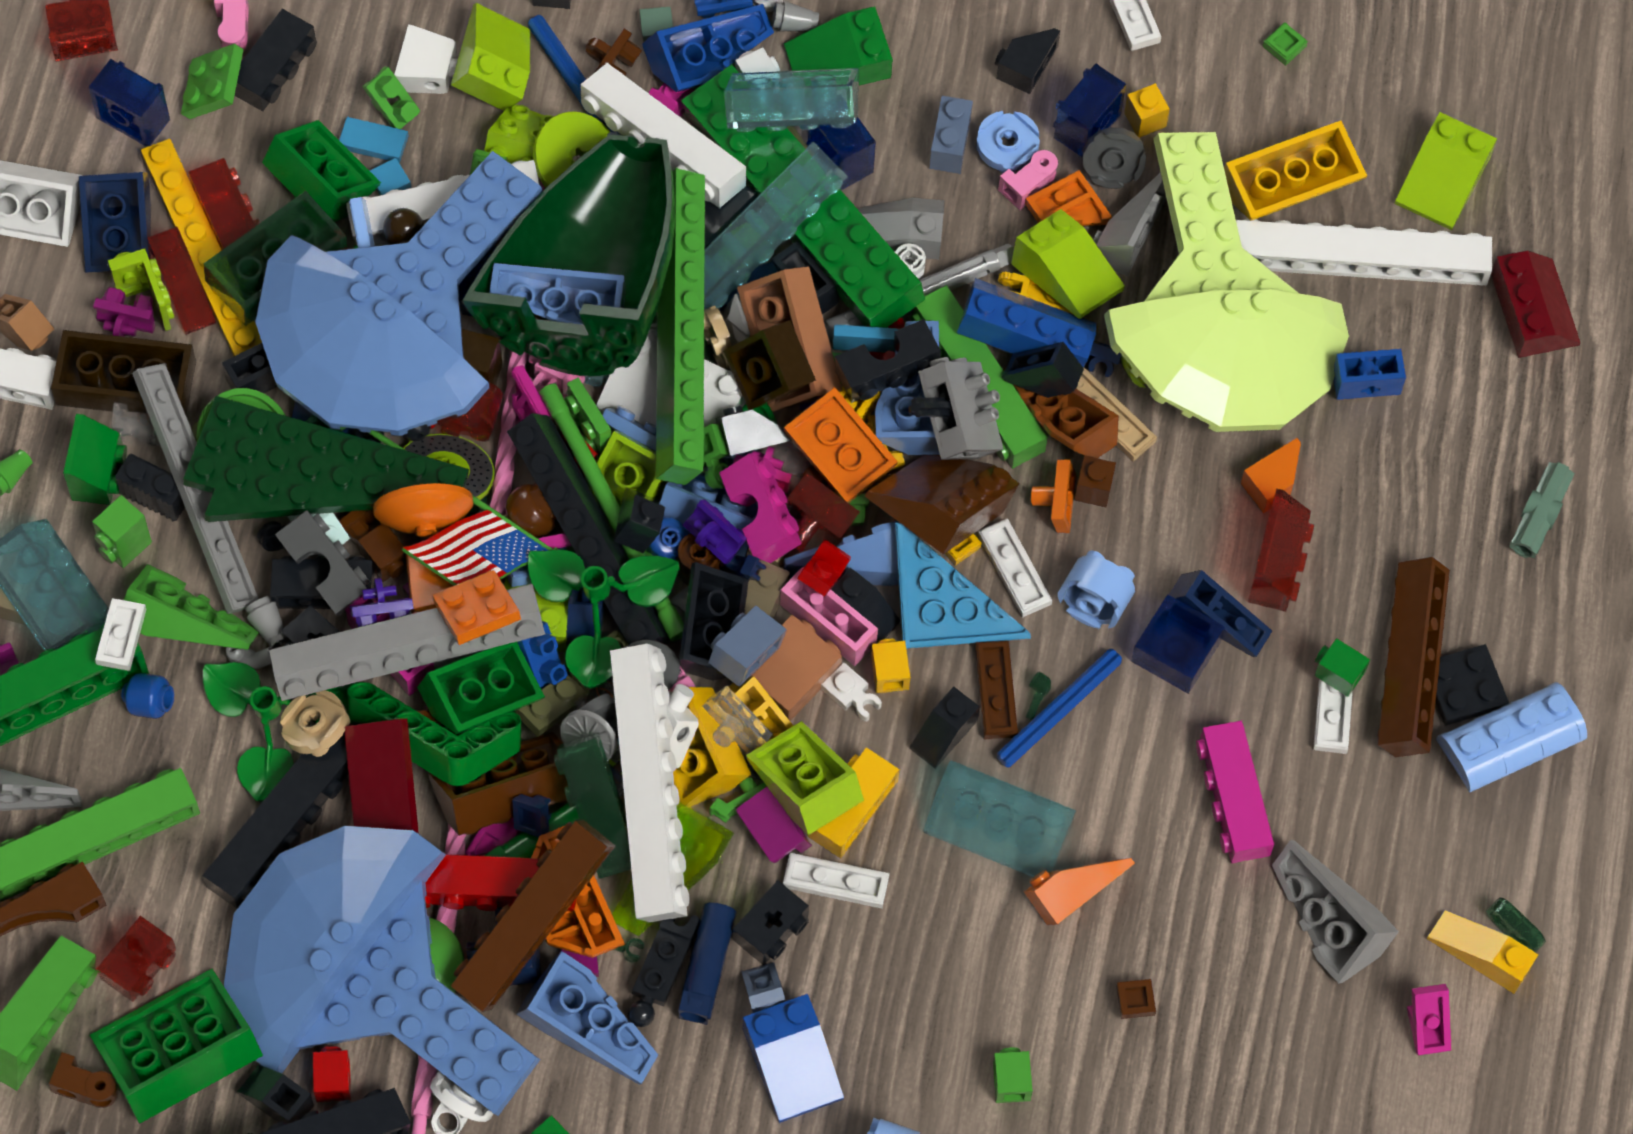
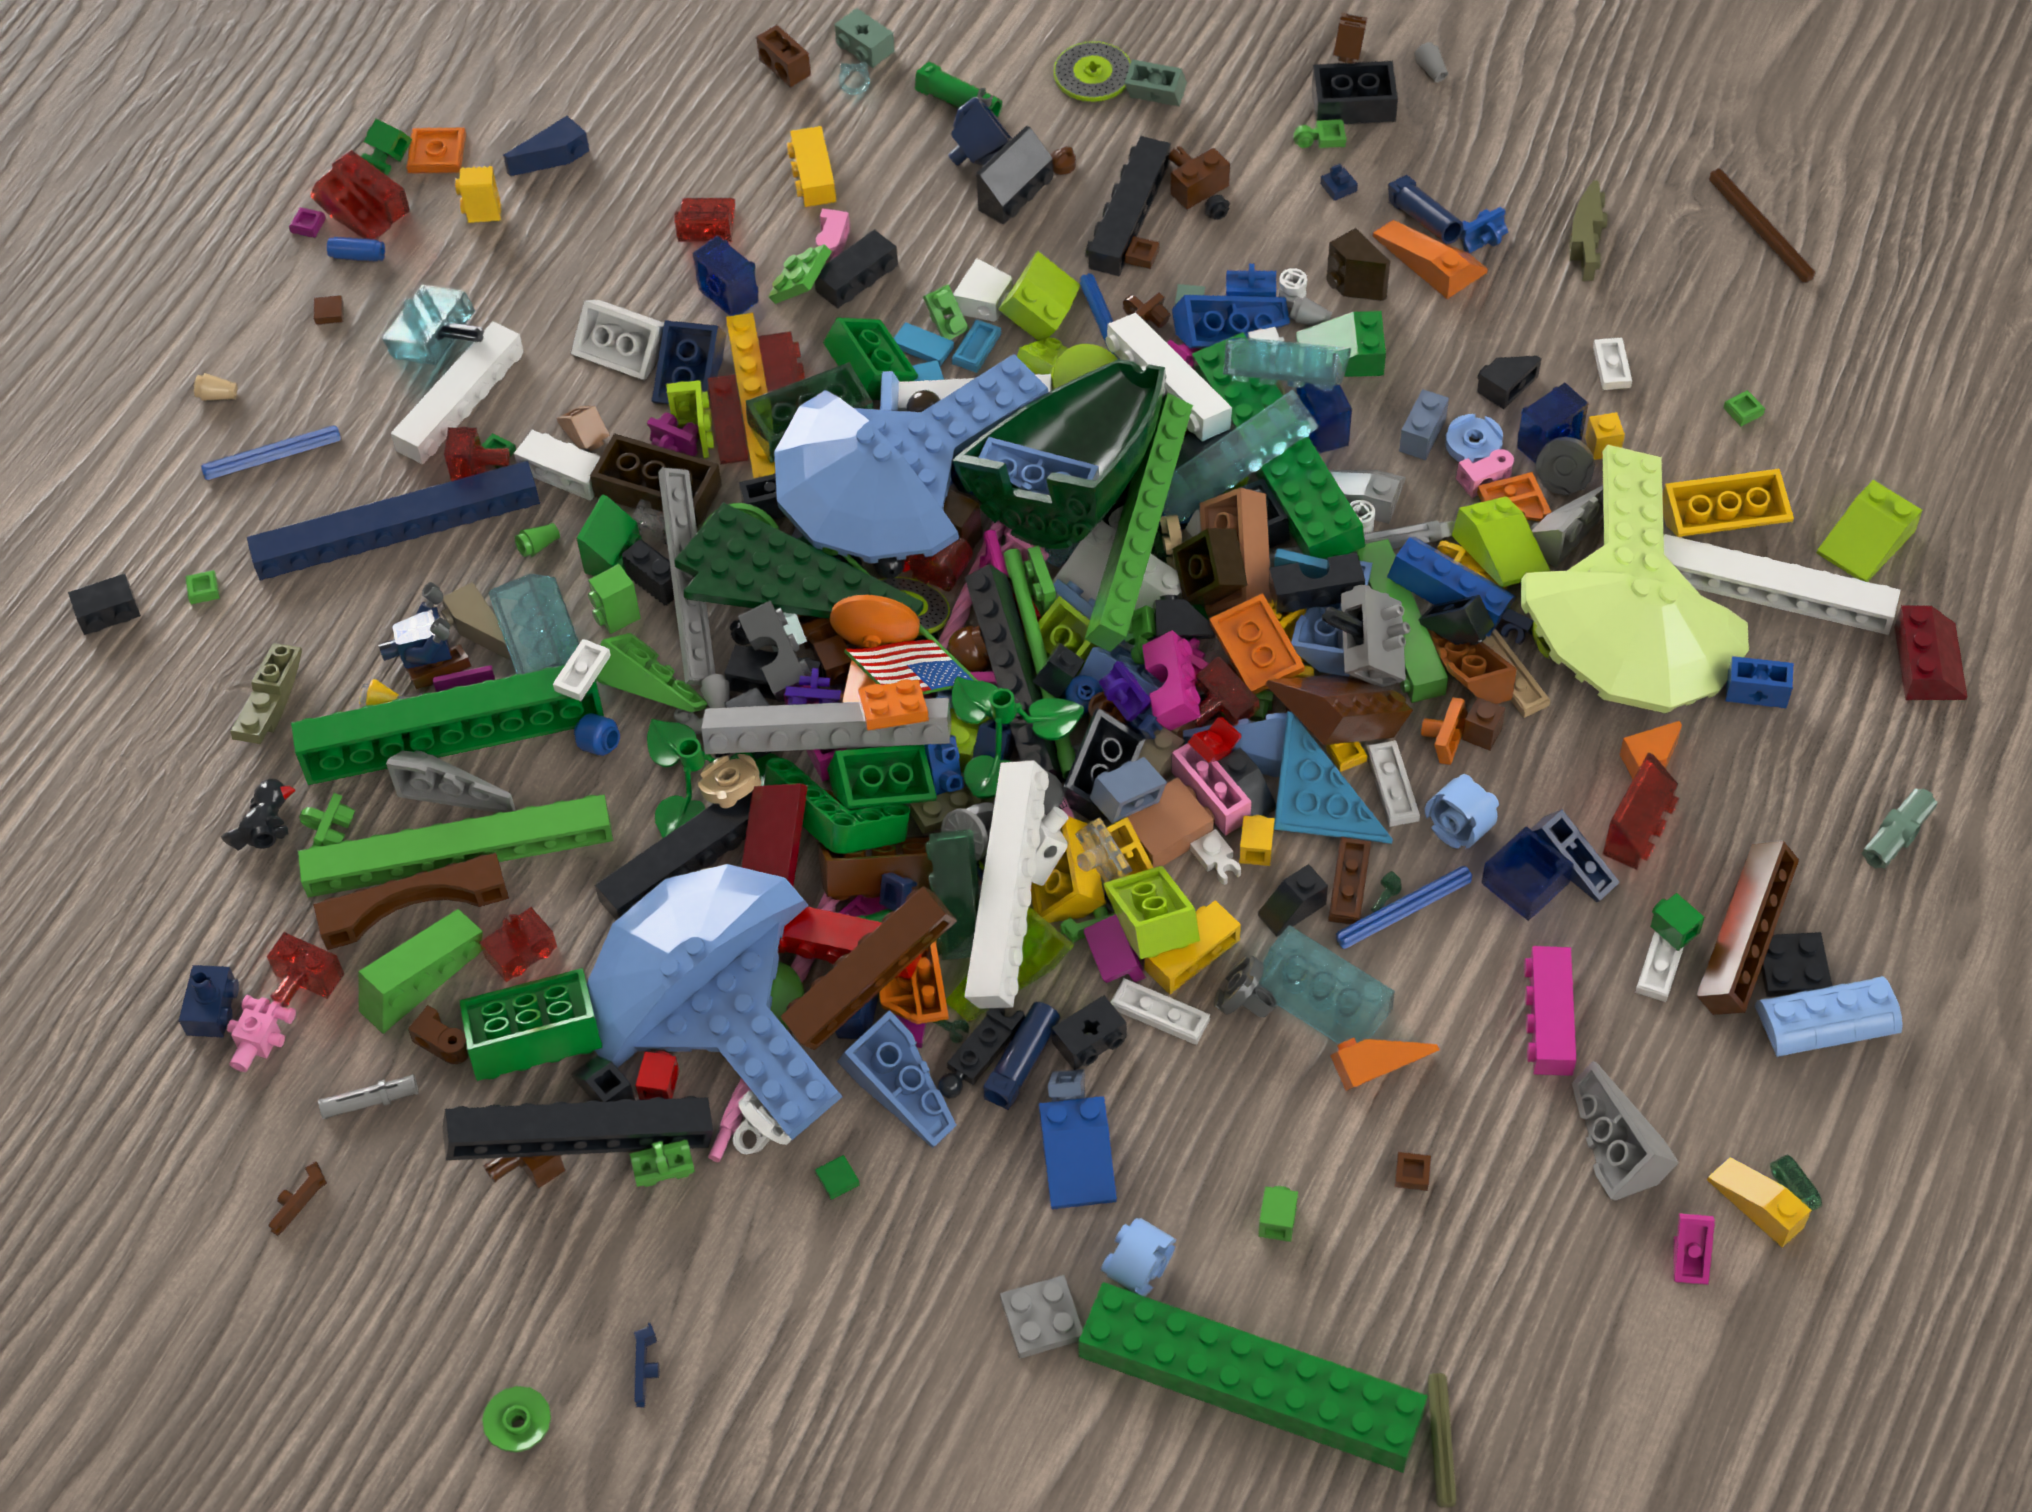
camera: 20 degrees right, 10 degrees down
(433, 129) = (976, 346): none -> dark azure tile
(919, 840) = (1245, 990): none -> dark grey tile

